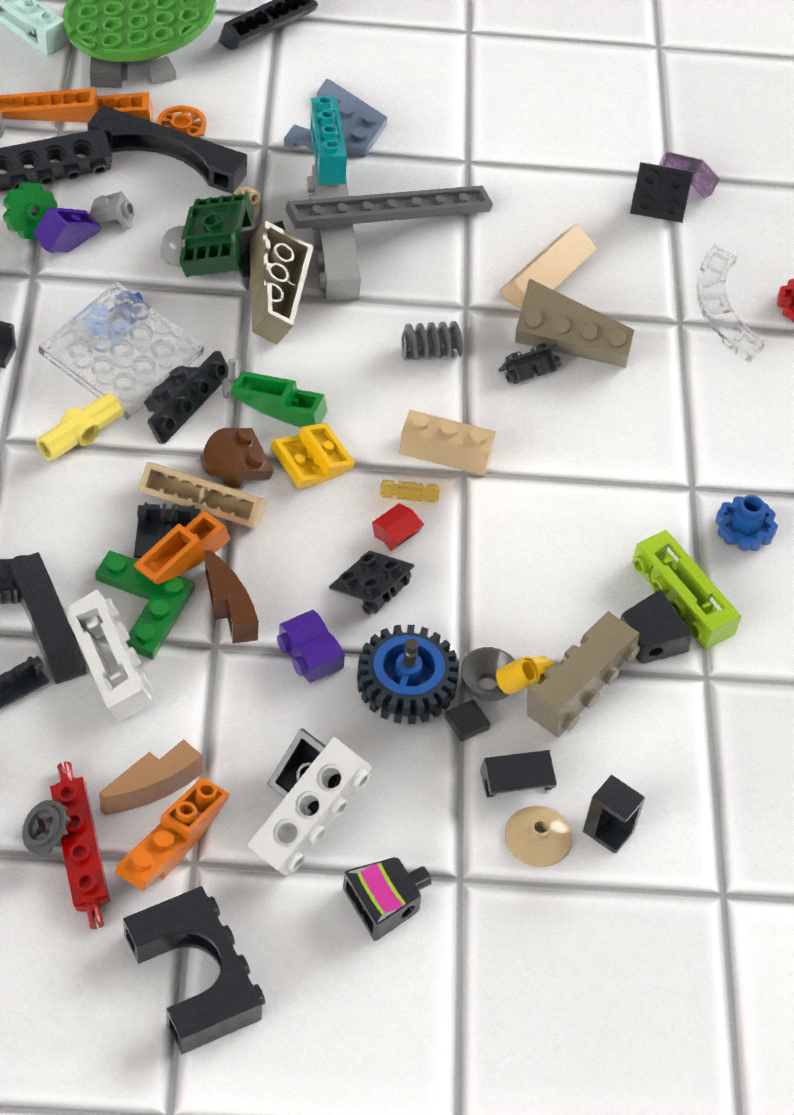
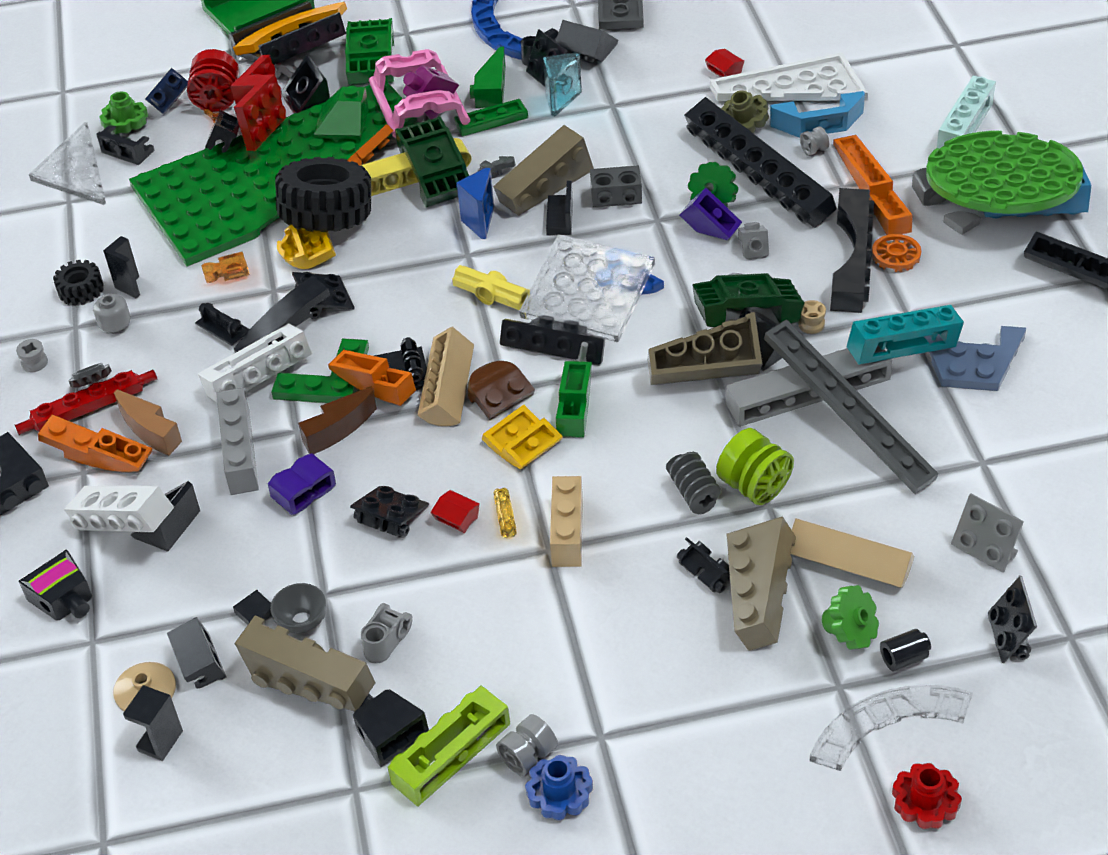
camera: 85 degrees right, 5 degrees down
(224, 692) = (237, 441): none -> light grey brick
(407, 674) = (282, 549): wheel -> none
(440, 289) = (754, 466): none -> lime wheel
(522, 673) = (296, 624): yellow piece -> none
(537, 613) = (384, 633): none -> light grey piece
(565, 176) = (987, 532): none -> light grey hinge
(628, 286) = (852, 617): none -> bright green plant
(663, 267) = (905, 649): none -> black brick
(700, 527) = (530, 741): none -> light grey wheel
(703, 177) = (1074, 647): clear purple slope -> none

